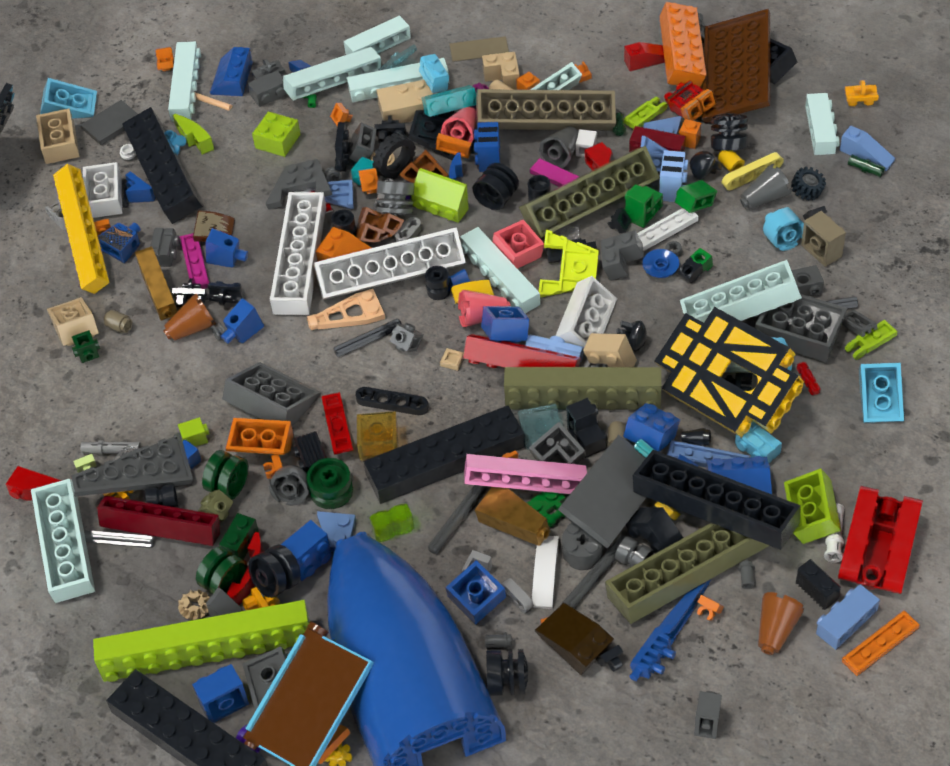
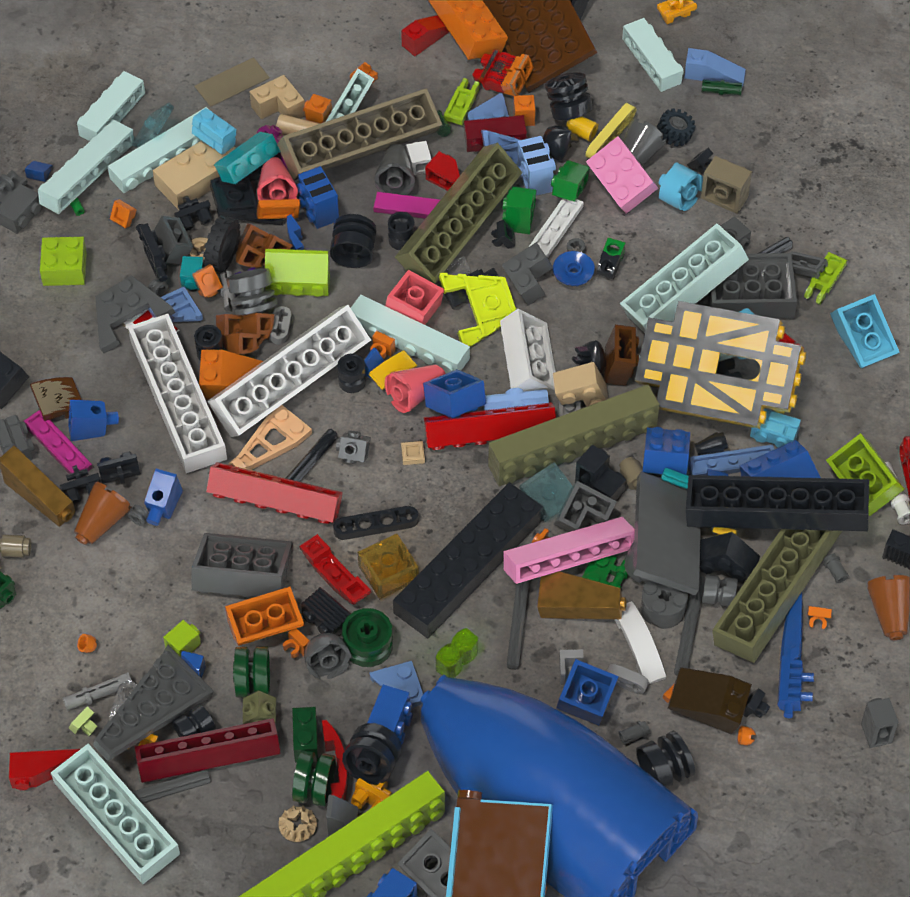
camera: 30 degrees left, 5 degrees up
(125, 410) = (86, 643): none -> orange hinge
(326, 350) = (274, 492): none -> brick
(476, 270) = (383, 344): none -> orange tile
(589, 679) = (744, 735): none -> orange hinge
(656, 338) = (621, 355): none -> reddish brown brick
(738, 203) = (622, 174): none -> bright pink brick

